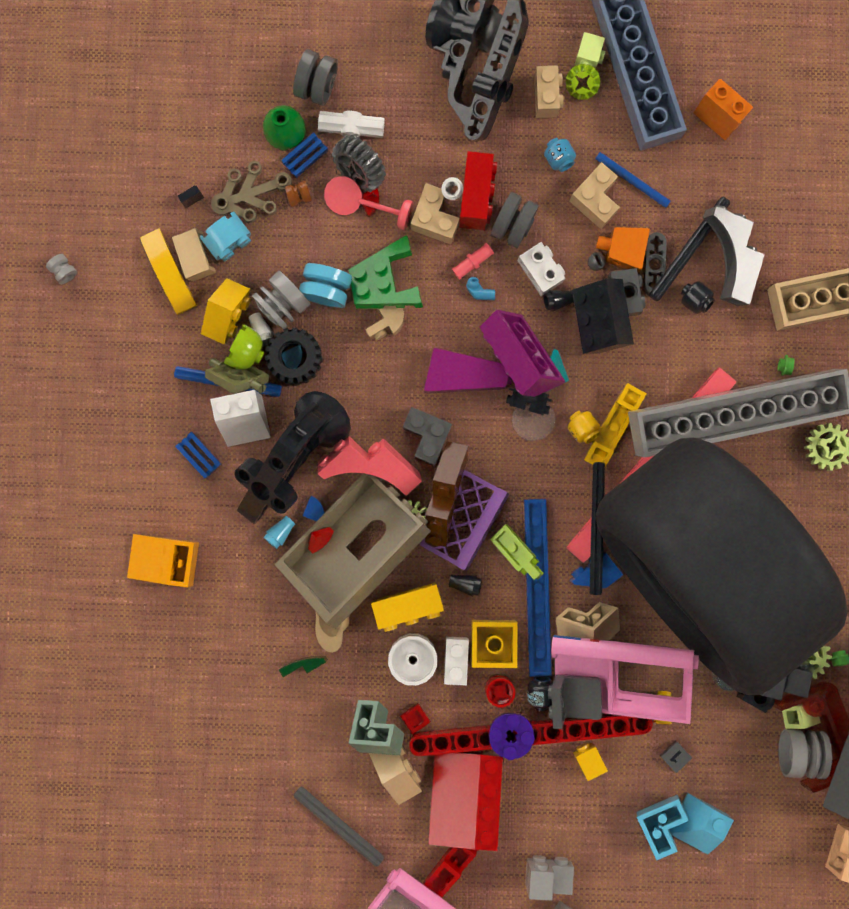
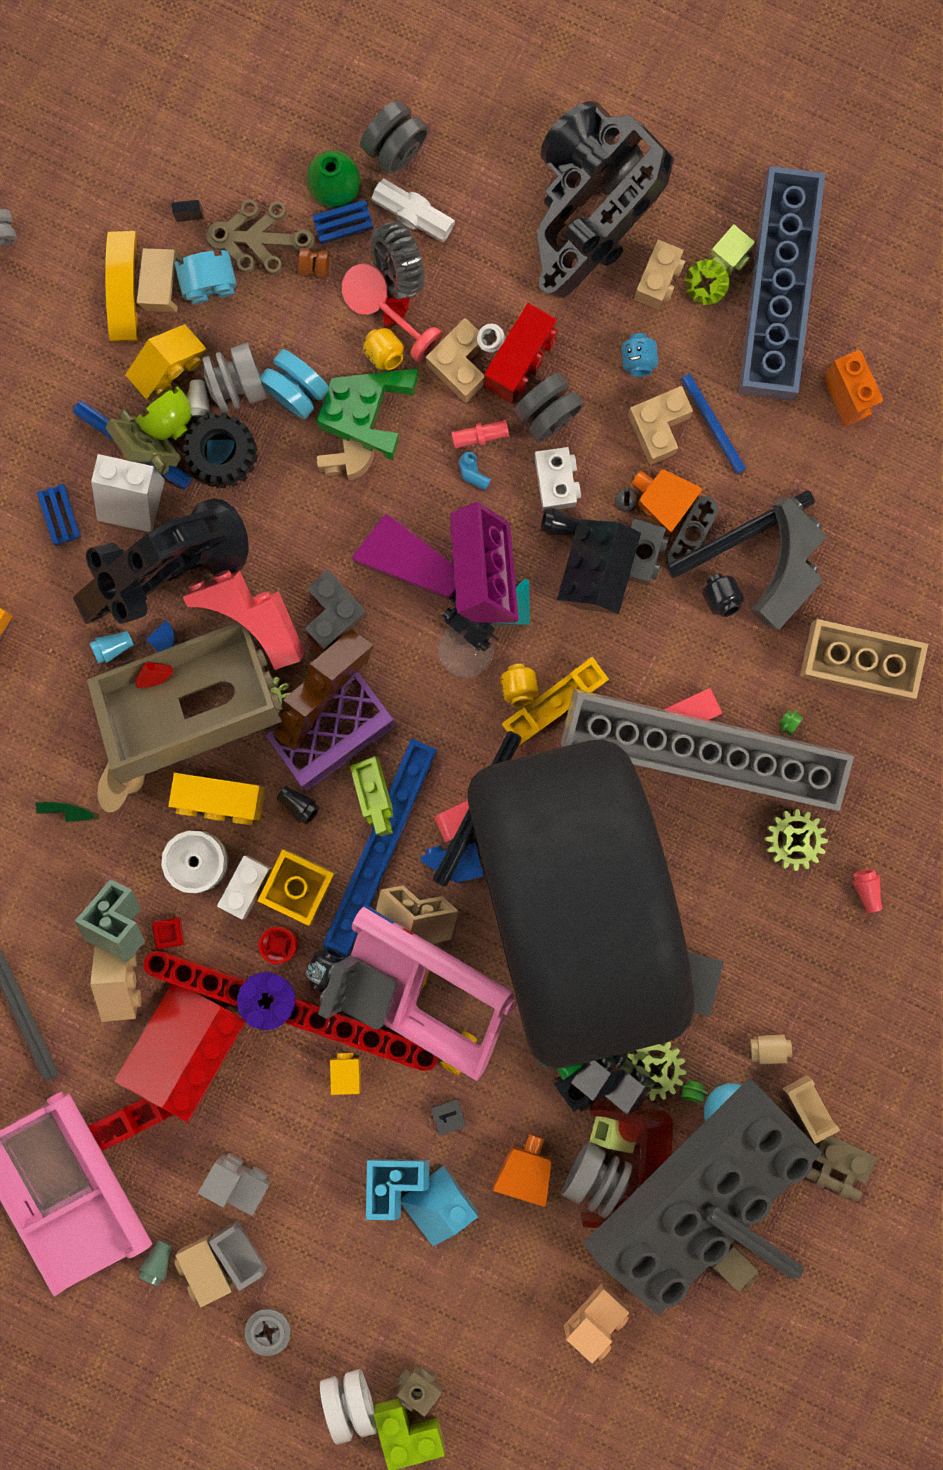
camera: 30 degrees right, 0 degrees up
(376, 232) = (383, 349): none -> yellow head
(750, 771) = (525, 1172): none -> orange torso

